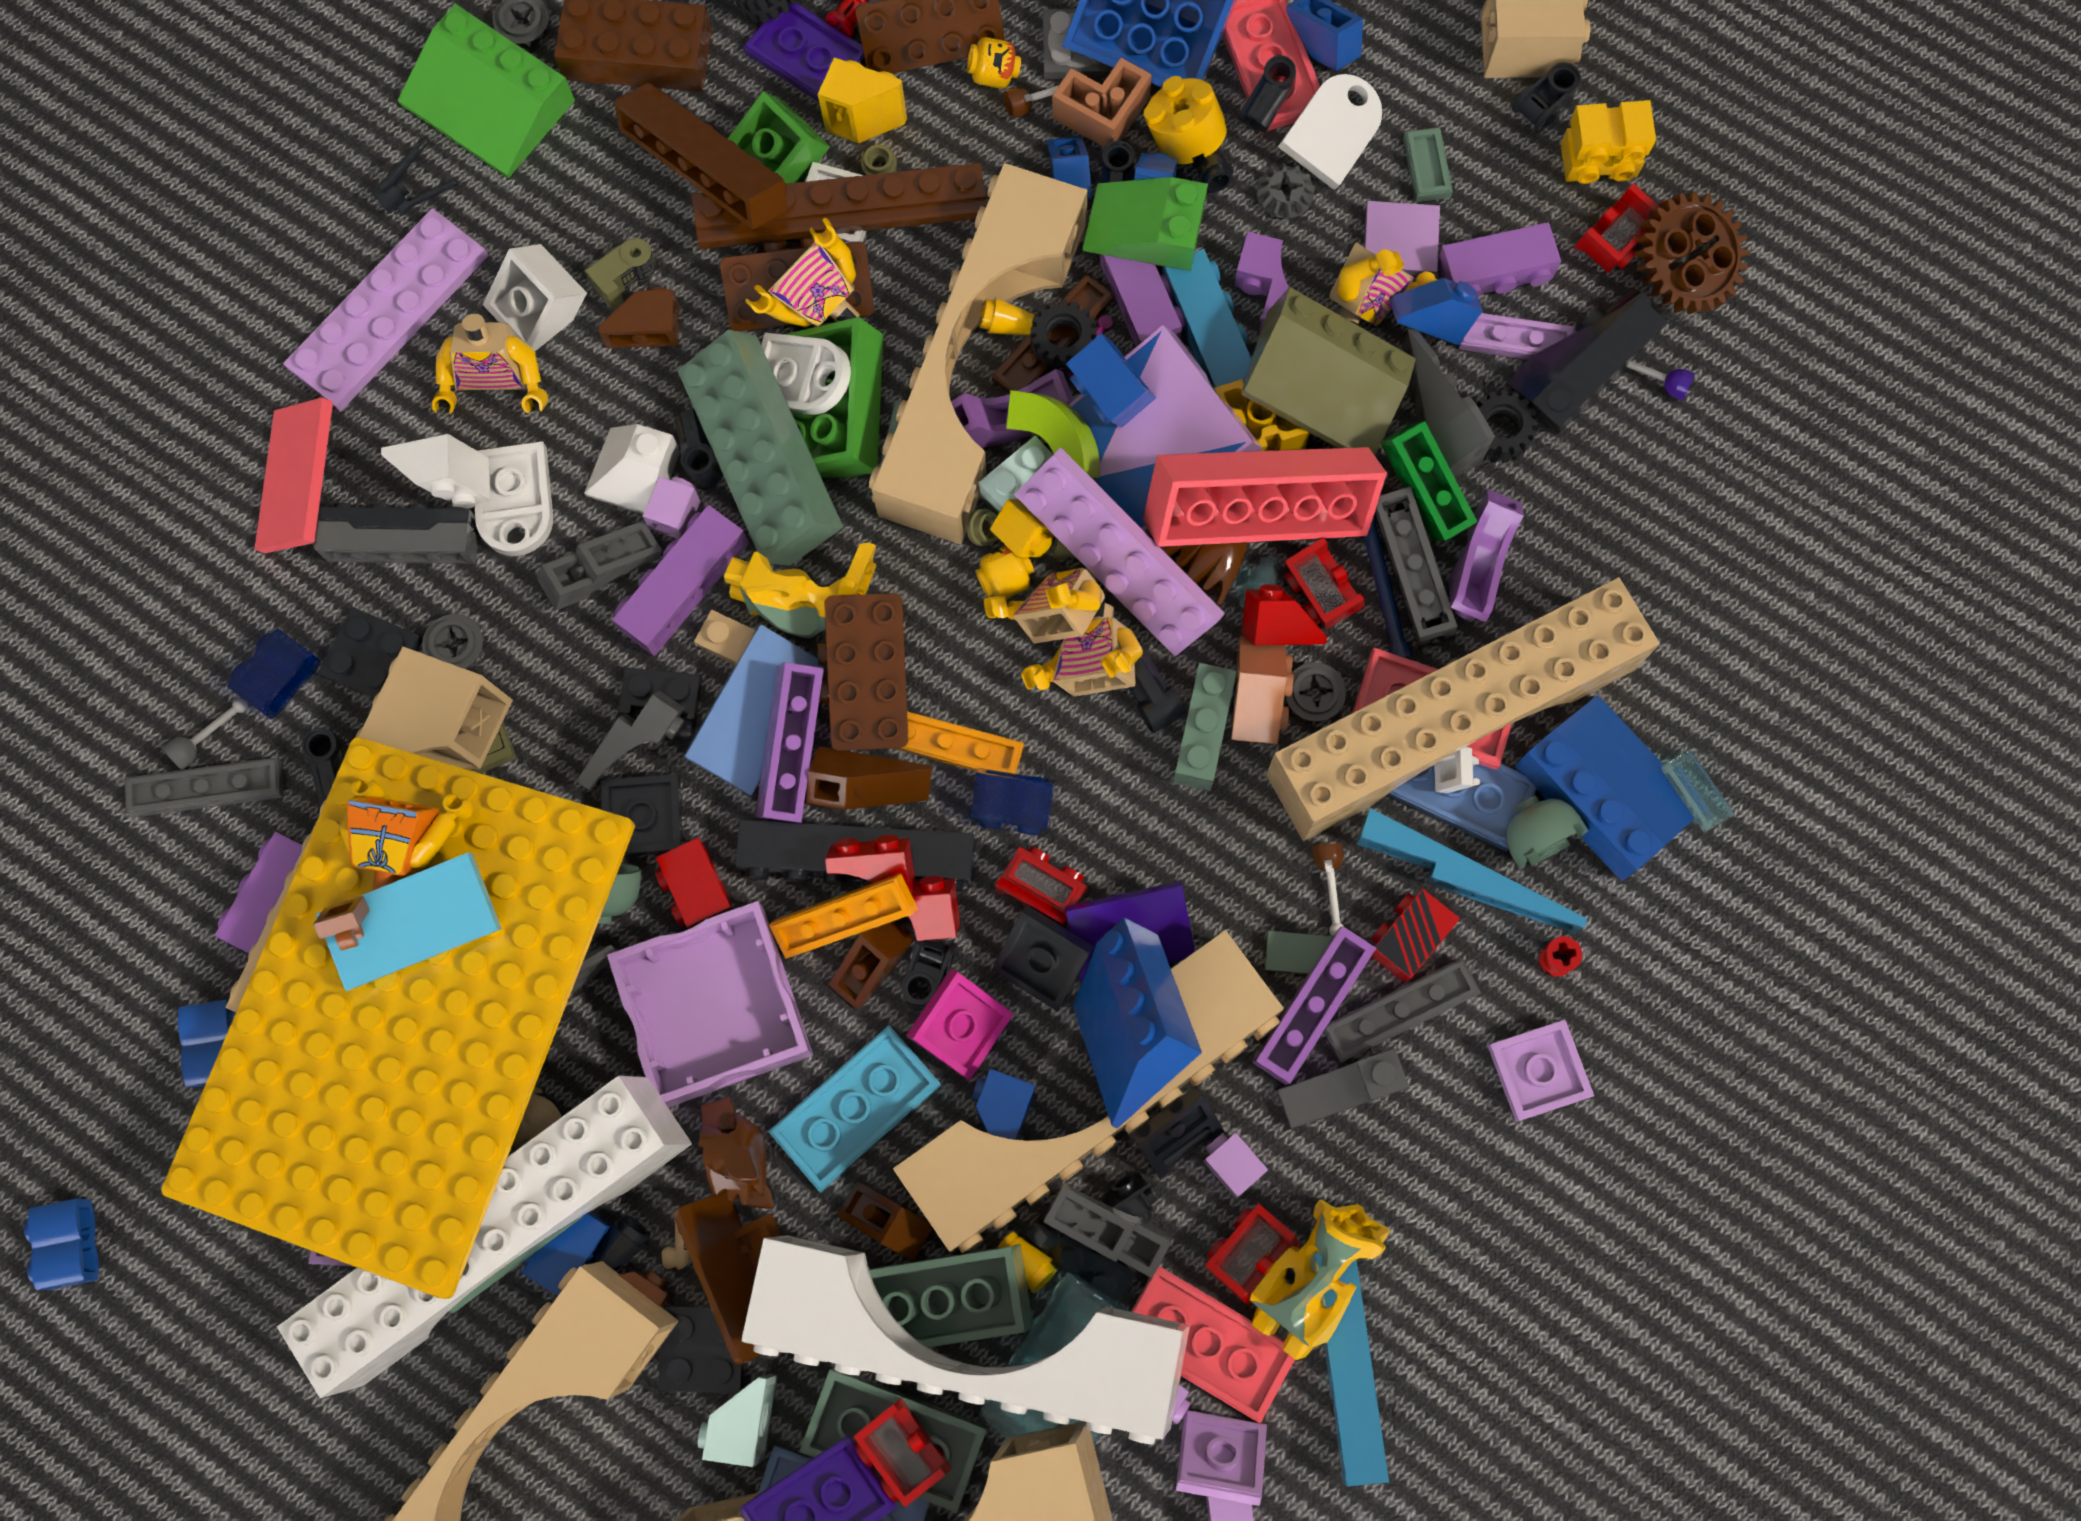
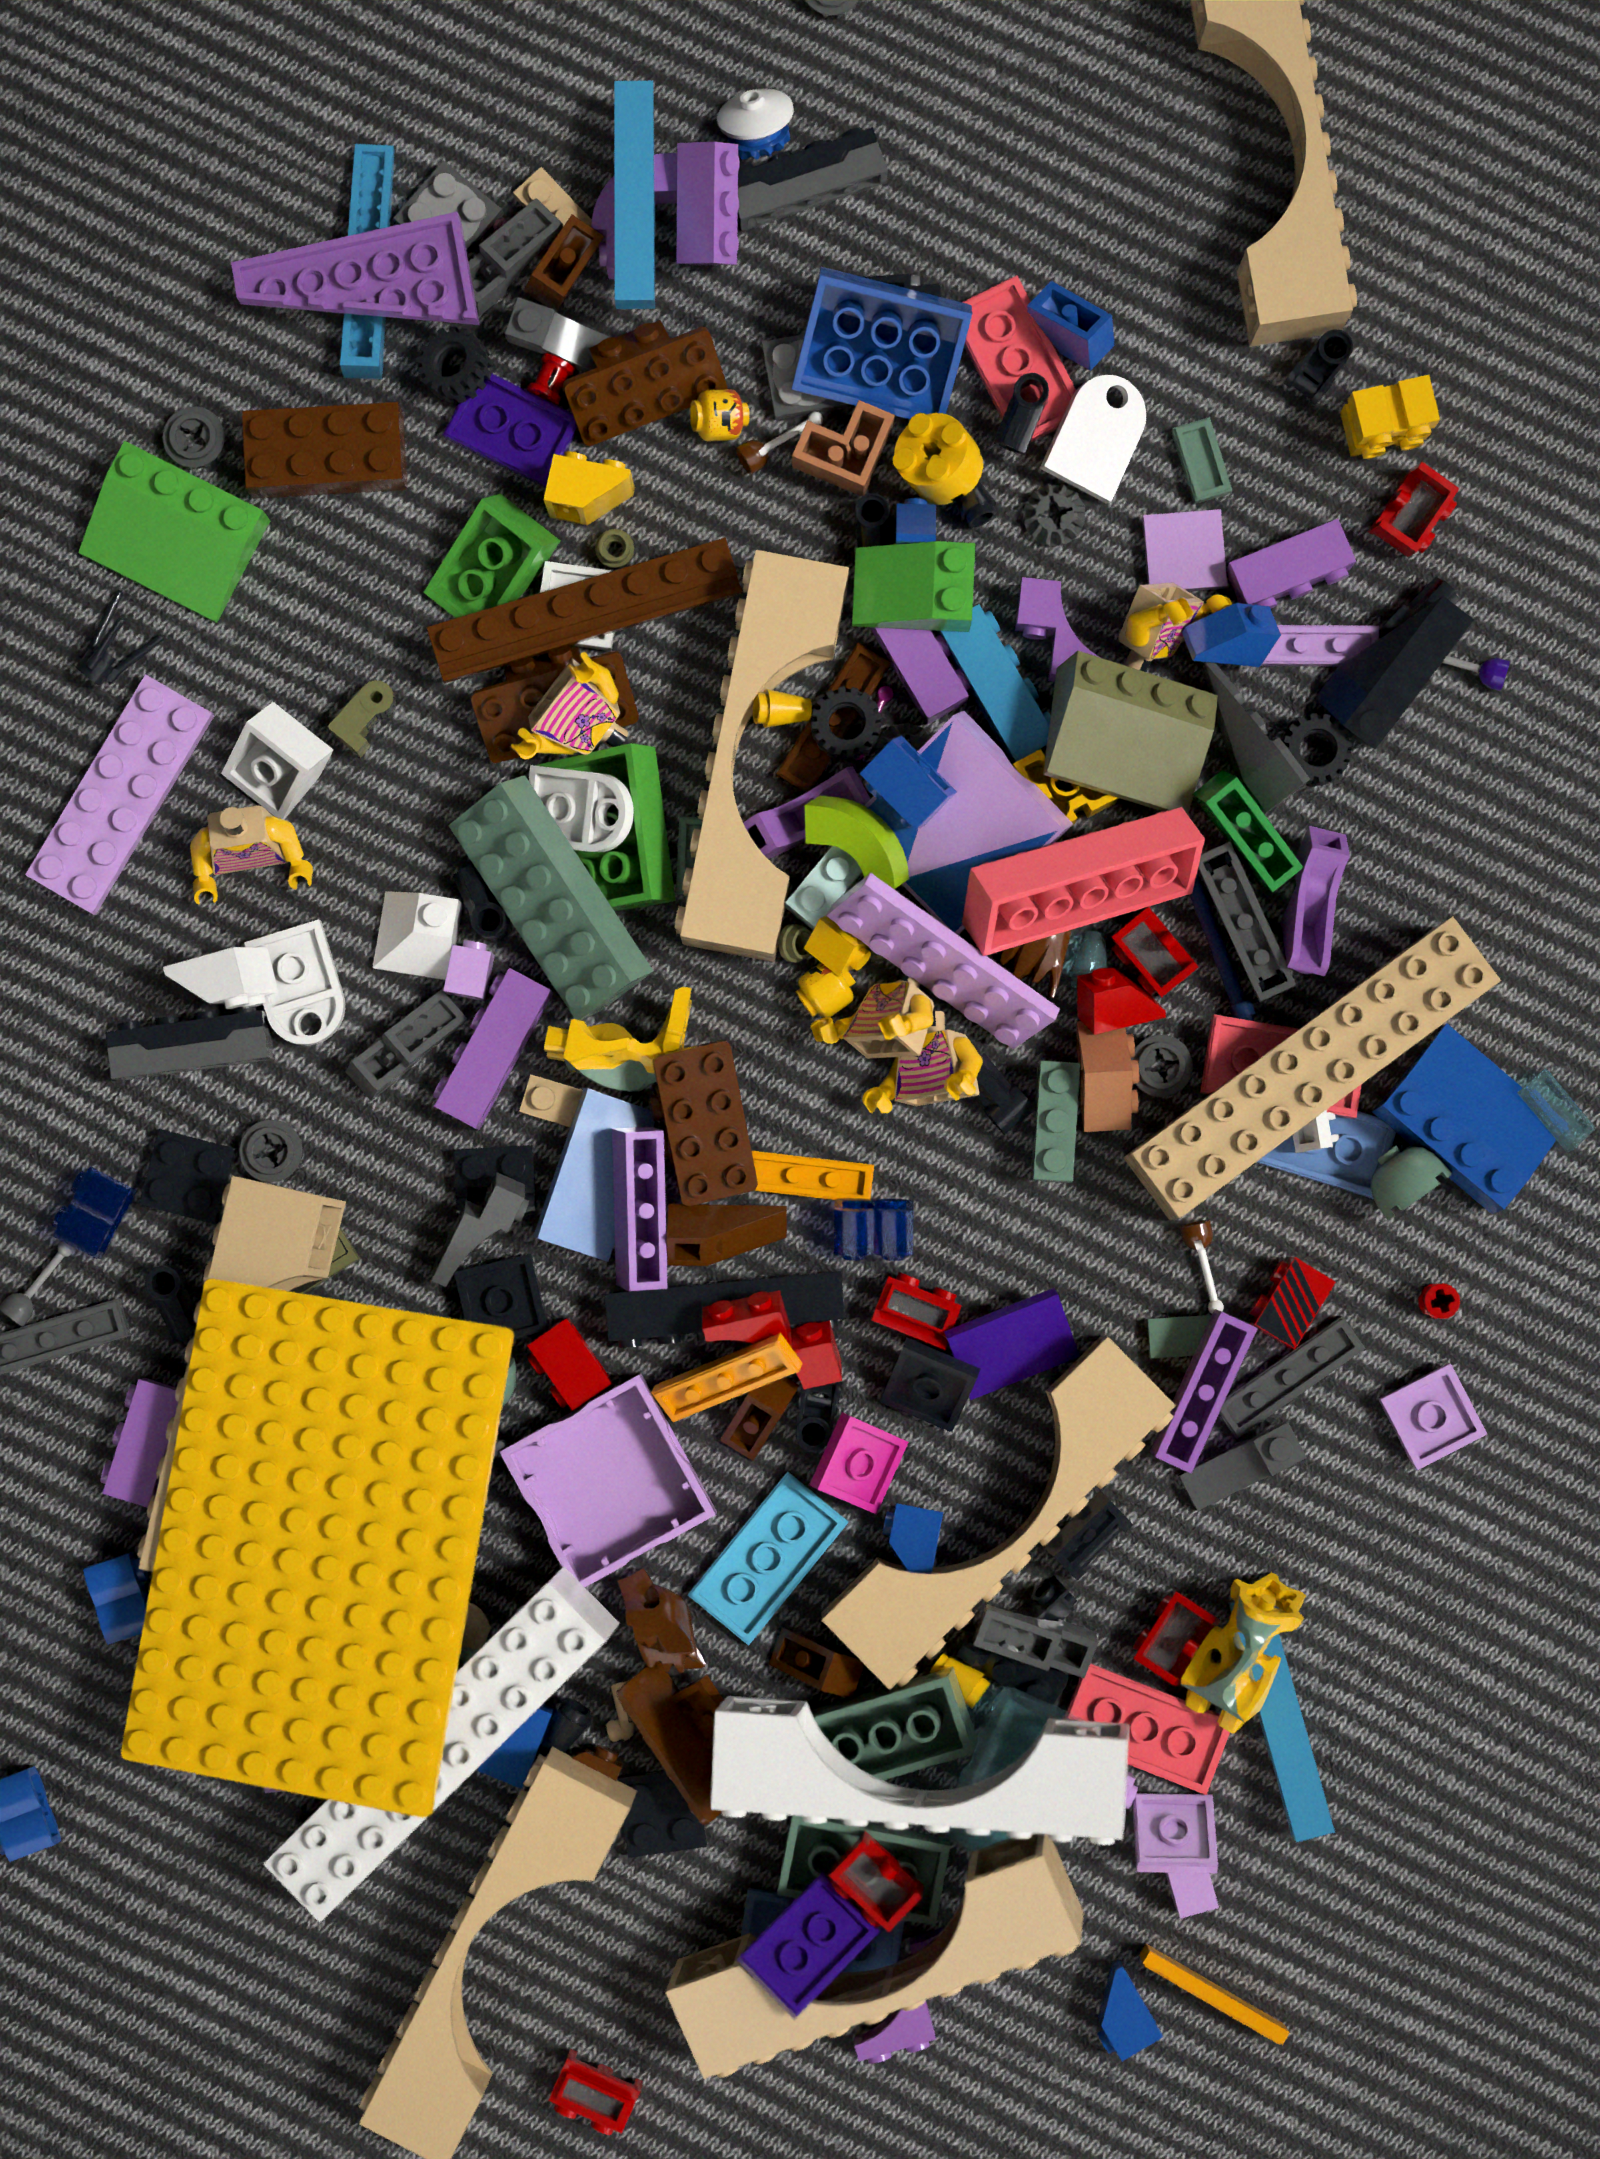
camera: 10 degrees left, 10 degrees up
(294, 476) = (68, 999): coral tile -> none
(343, 921) = (252, 1479): dark orange tile -> none
(393, 834) = (277, 1381): torso -> none
(417, 921) = (312, 1465): medium azure tile -> none
(643, 320) = (400, 768): reddish brown slope -> none
(702, 155) = (429, 582): reddish brown brick -> none
(740, 1426) = (713, 1880): light aqua slope -> none
(1070, 162) = (820, 524): blue slope -> none
(1133, 1019) = (1031, 1440): blue slope -> none
(1233, 1163) = (1146, 1555): lavender brick -> none
(1462, 875) = (1327, 1232): dark azure slope -> none
(1708, 282) = (1510, 554): reddish brown gear -> none

